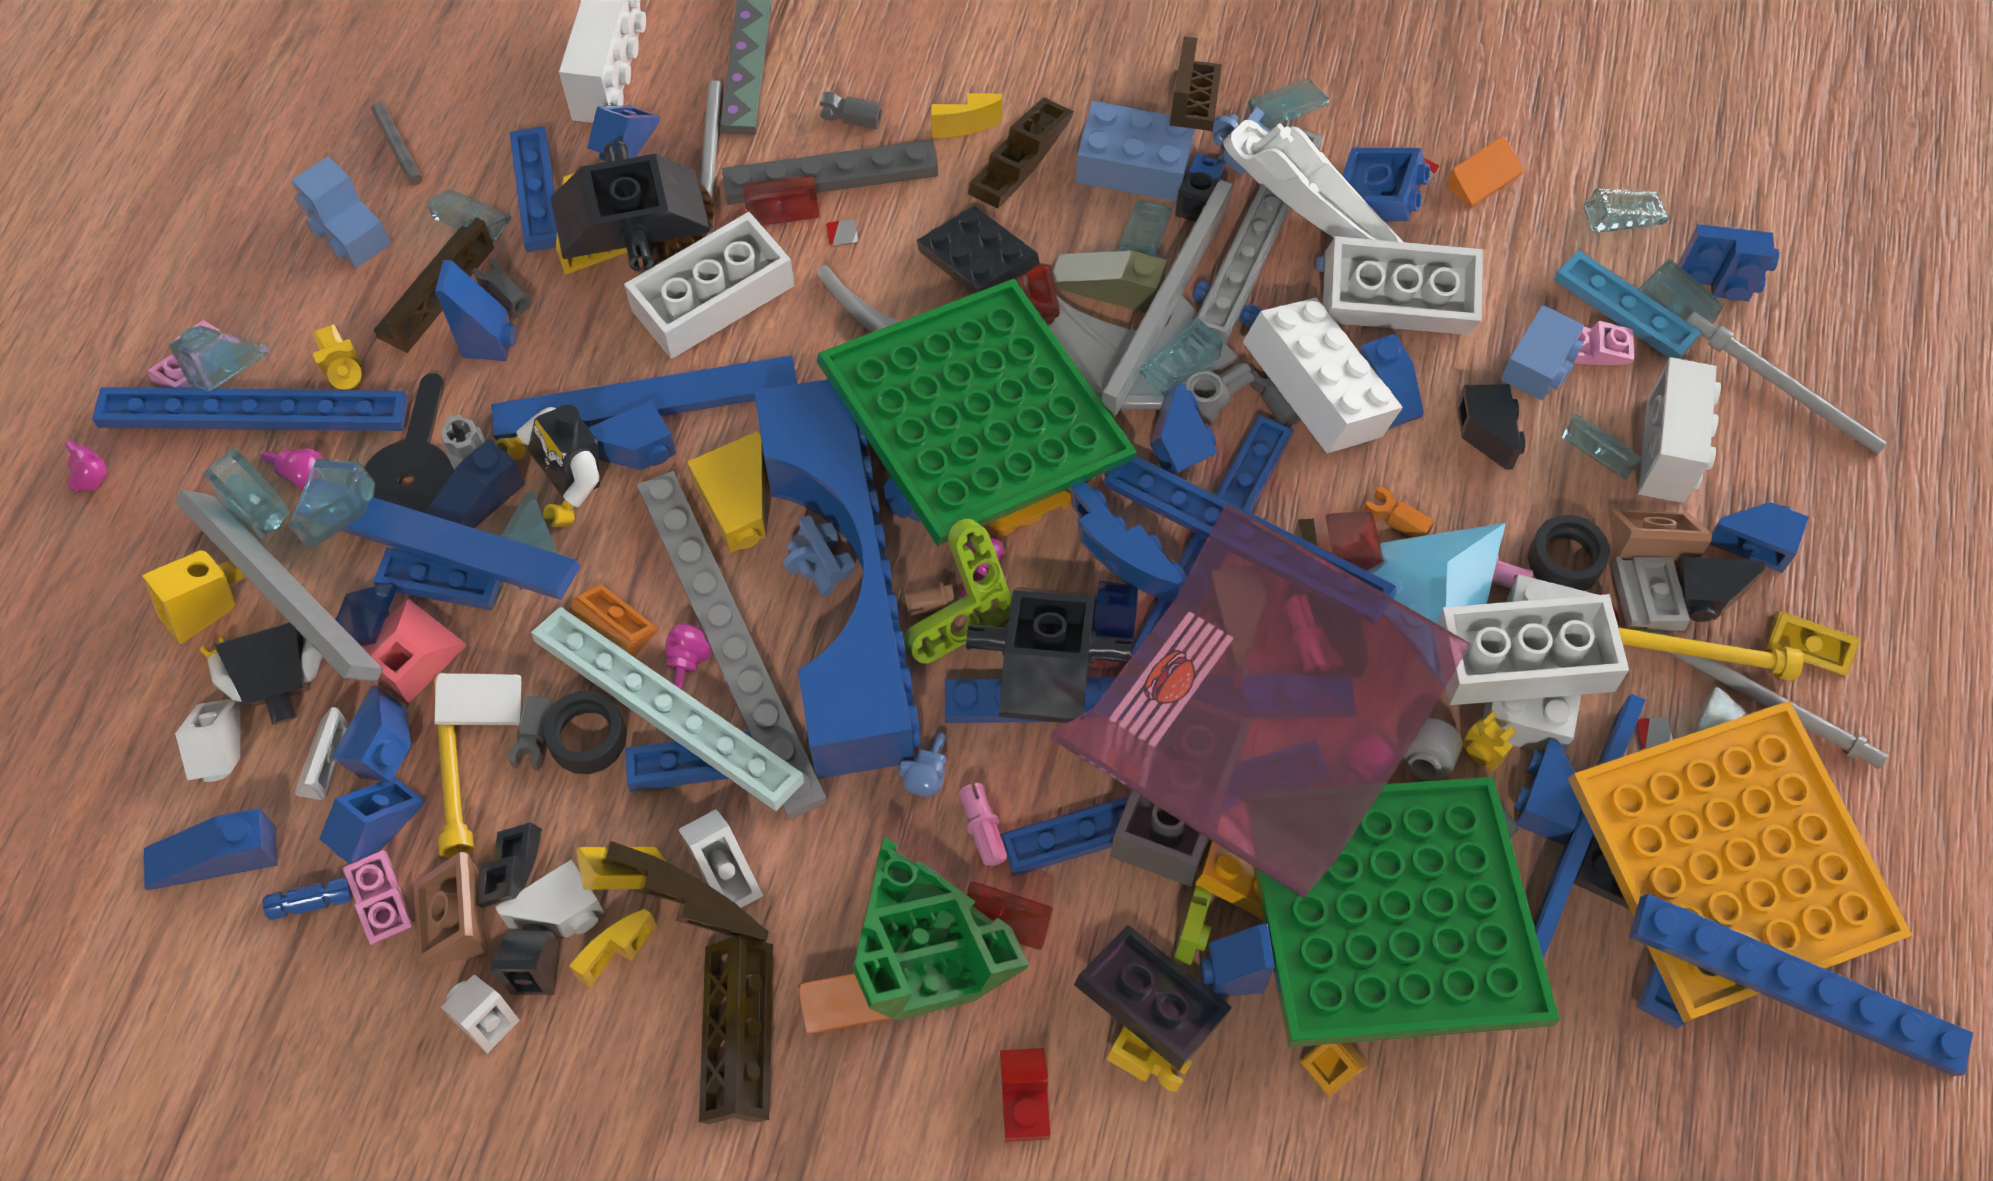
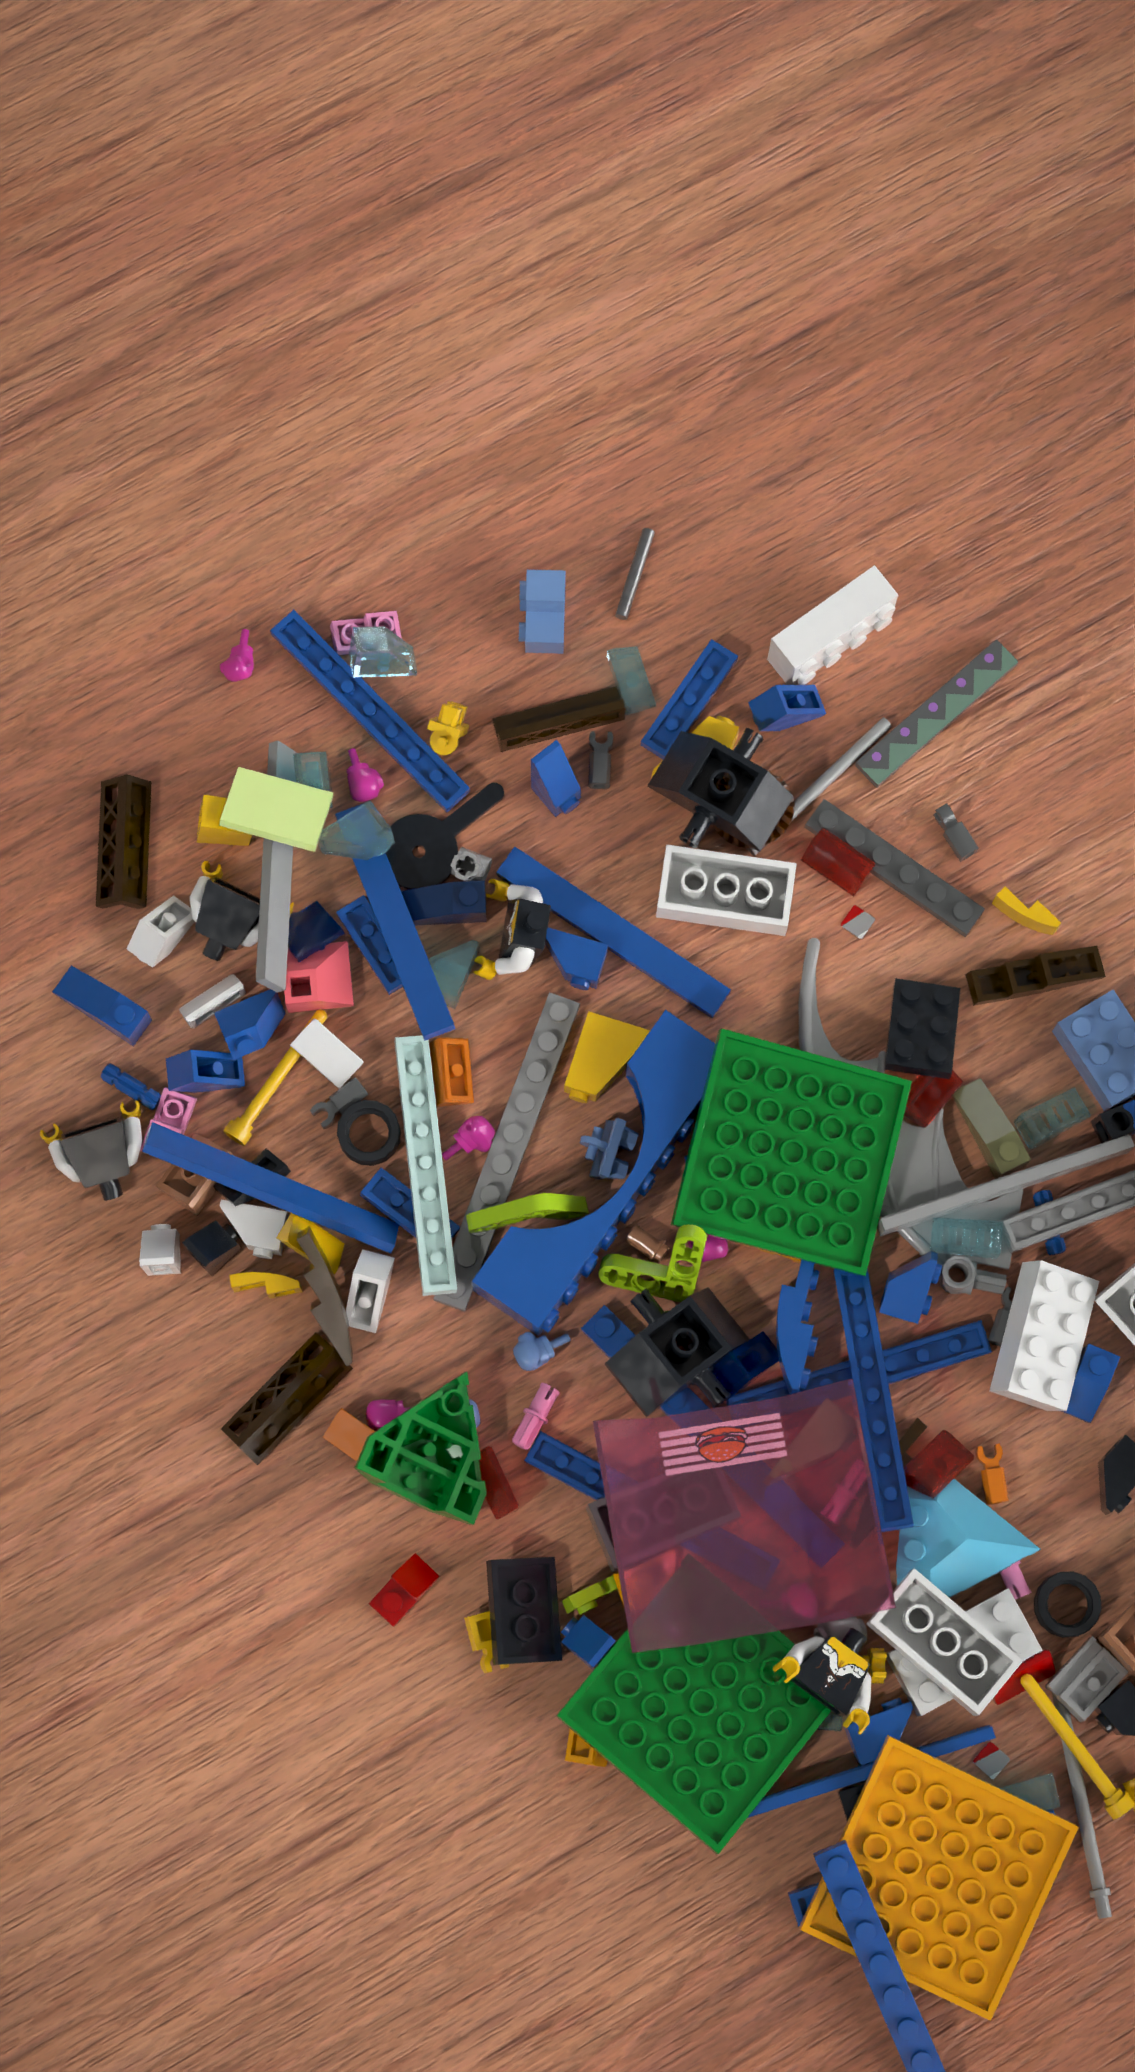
camera: 45 degrees right, 15 degrees up
(104, 688) = (128, 840): none -> dark brown fence
(228, 532) = (276, 809): none -> yellowish green tile
(325, 981) = (99, 1151): none -> black torso
(528, 848) = (270, 1187): none -> blue tile
(807, 632) = (534, 1206): none -> lime beam
(840, 953) = (382, 1412): none -> dark pink piece
(1476, 769) = (833, 1674): none -> torso

